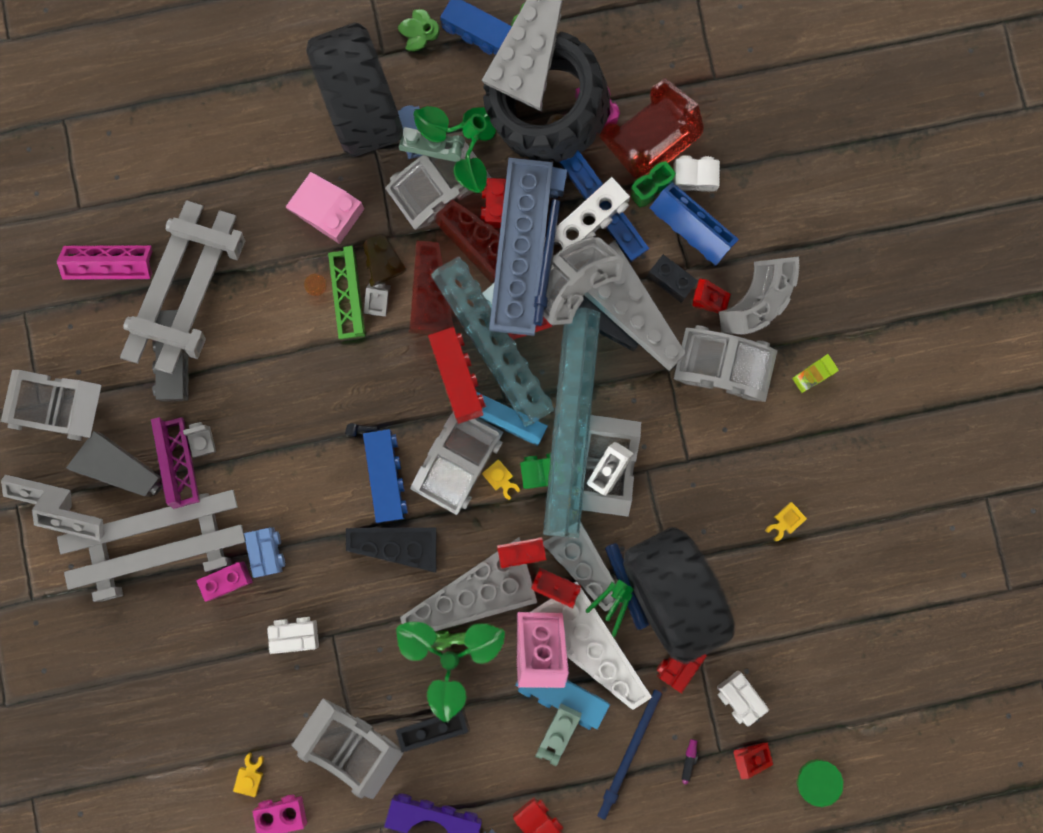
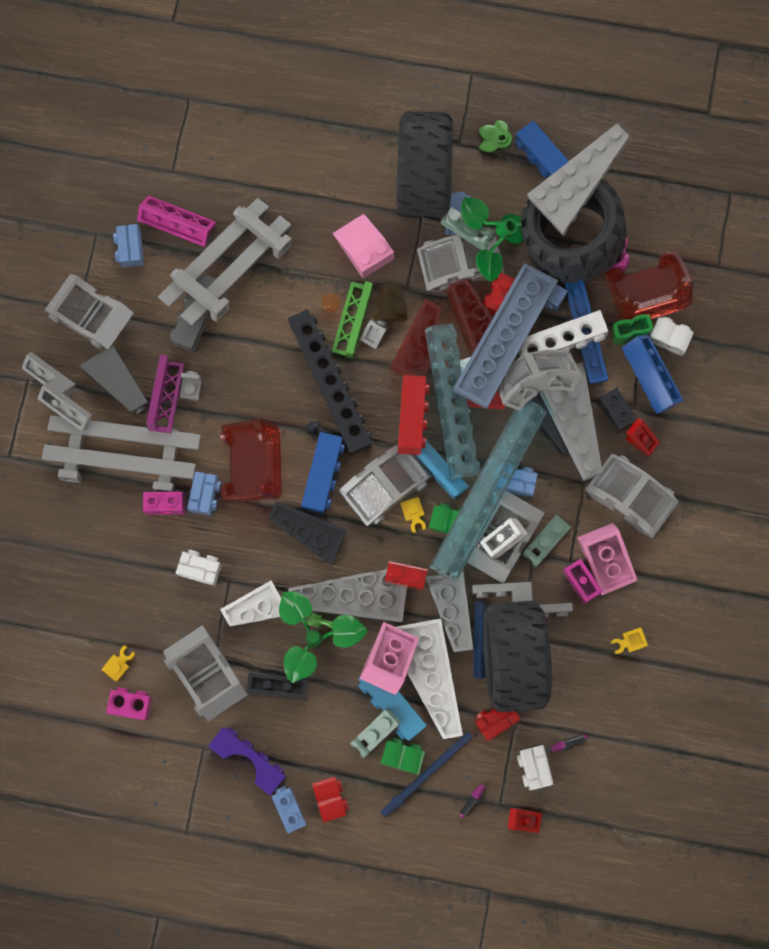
camera: 30 degrees right, 5 degrees down
(65, 311) = (129, 246): none -> medium blue brick
(290, 323) = (298, 324): none -> black brick
(303, 494) = (253, 461): none -> clear red windscreen
(371, 652) = (253, 607): none -> white wing
(541, 300) = (503, 382): dark blue bar -> none
(556, 587) = (421, 615): red hinge -> none
(597, 747) = (402, 756): none -> green brick
(605, 397) = (523, 482): none -> medium blue brick
(621, 593) = (472, 639): green plant -> none
(653, 522) = (520, 592): none -> light grey bracket
(654, 449) = (546, 540): none -> sand green plate
(711, 479) = (582, 581): none -> dark pink brick
(726, 442) = (607, 558): none -> bright pink slope
(762, 660) = (568, 744): none -> black piece
(766, 297) = (686, 454): light grey window -> none
(815, 373) = (702, 533): lime leg -> none
(820, 783) = (571, 863): green tile -> none

